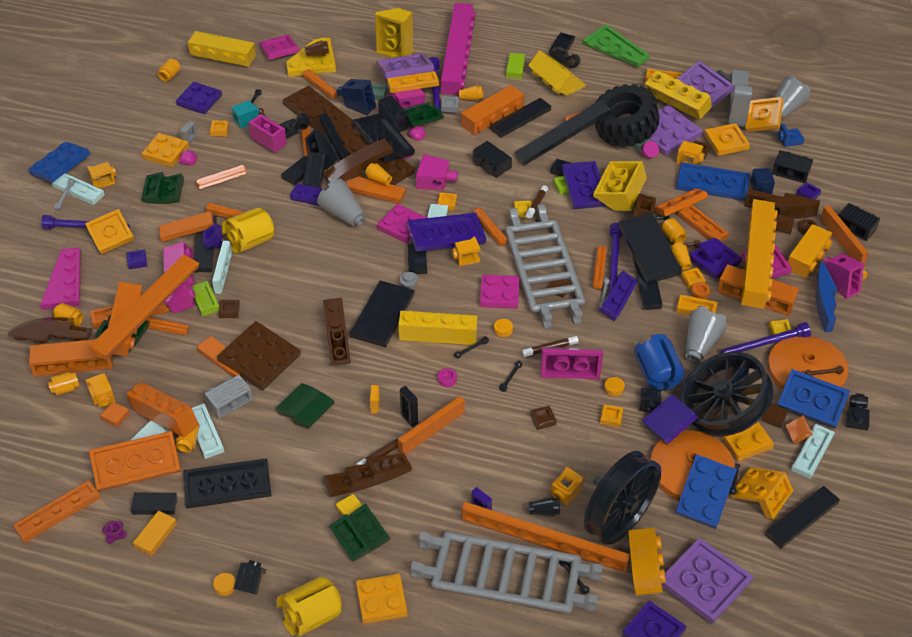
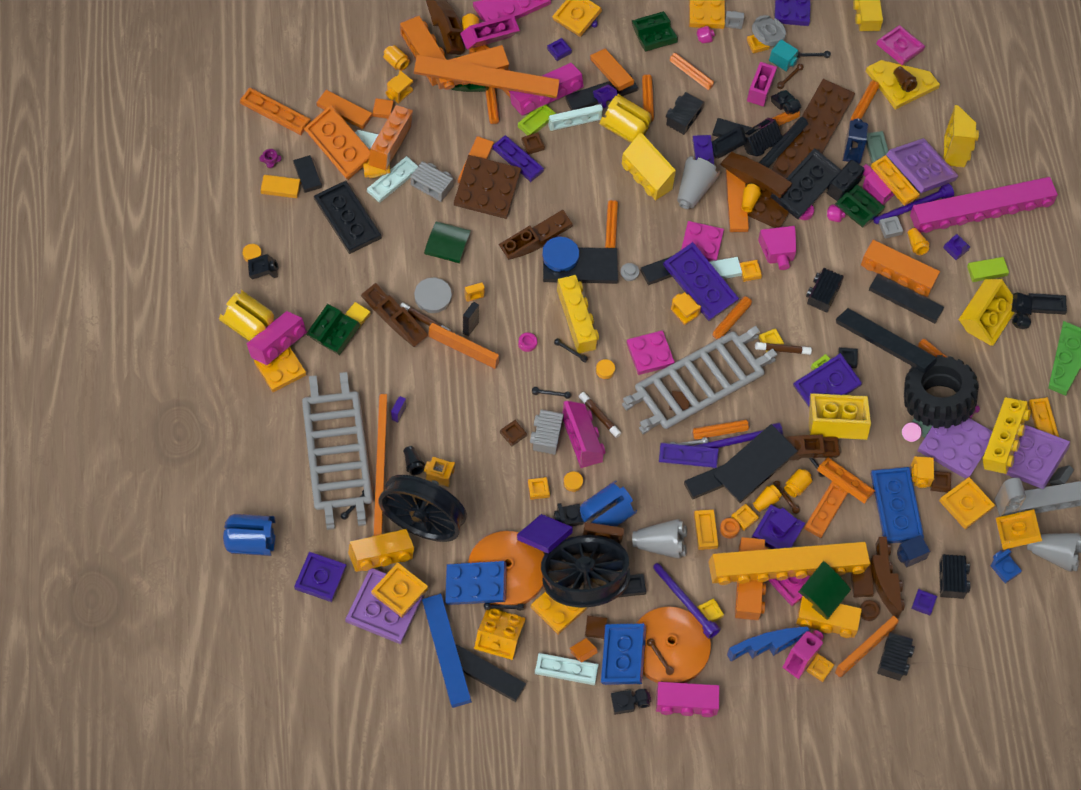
camera: 65 degrees right, 15 degrees up
(80, 457) = (346, 109): none -> orange tile
(90, 295) = (490, 31): none -> dark pink brick
(214, 115) = (768, 30): none -> light grey tile
(238, 324) = (517, 157): none -> dark purple tile
(264, 192) = (684, 113): none -> black brick
(309, 228) = (648, 167): none -> yellow slope
(351, 278) = (611, 224): none -> orange axle
(351, 583) = (276, 338): none -> dark pink brick
(359, 436) = (433, 295): none -> light grey tile
(367, 320) = (560, 254): none -> blue tile
(486, 75) = (956, 247): none -> dark purple tile
(555, 387) = (547, 431): none -> light grey brick
(685, 372) = (610, 532): none -> reddish brown tile
(698, 556) = (399, 590): none -> light orange plate
(774, 539) = (446, 651): none -> blue tile
(792, 236) = (825, 590): none -> dark green slope
(869, 368) = (687, 699): none -> dark pink brick

